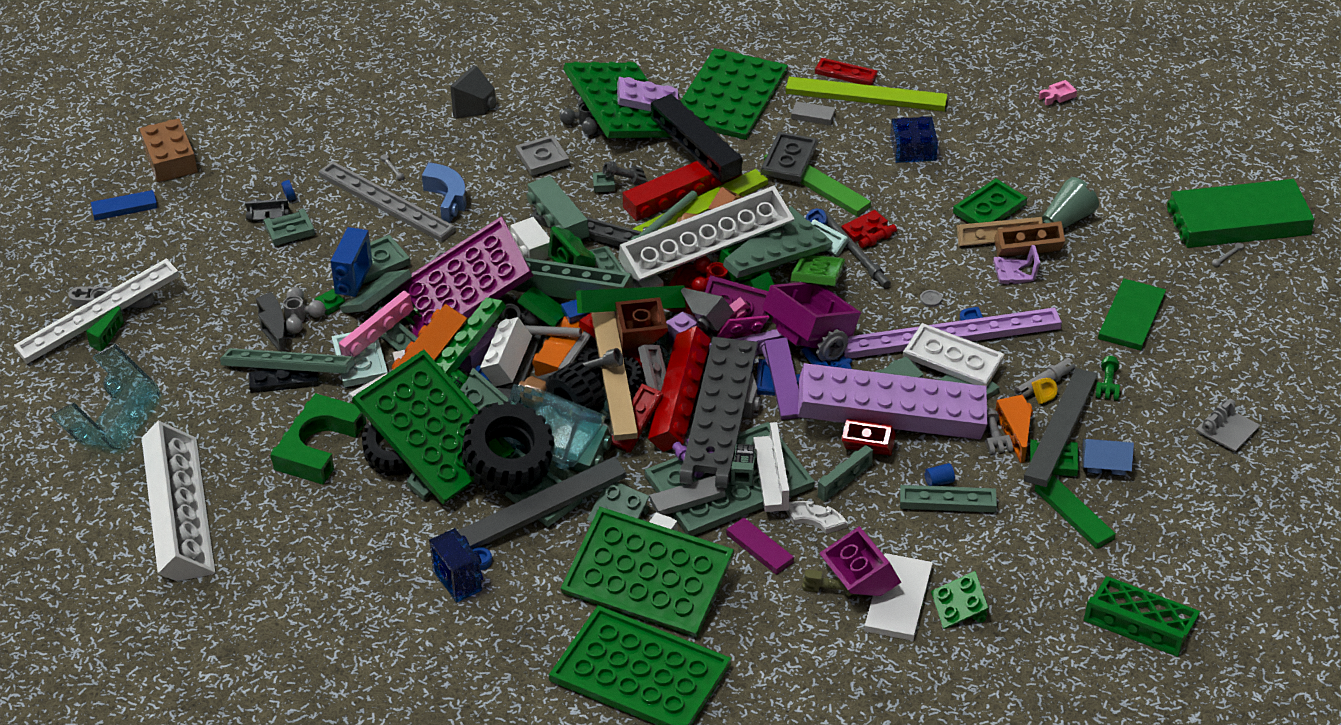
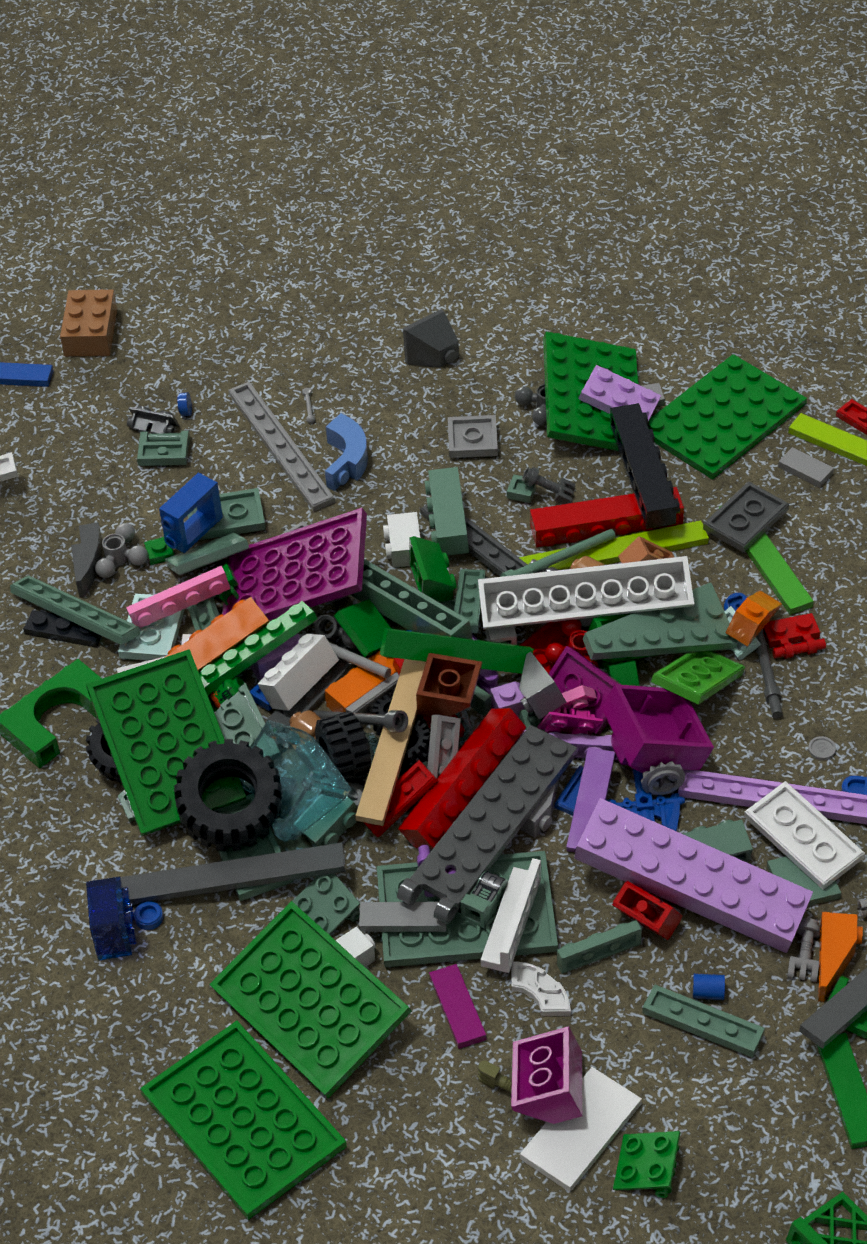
camera: 25 degrees right, 5 degrees up
(836, 222) = (752, 617): none -> orange slope

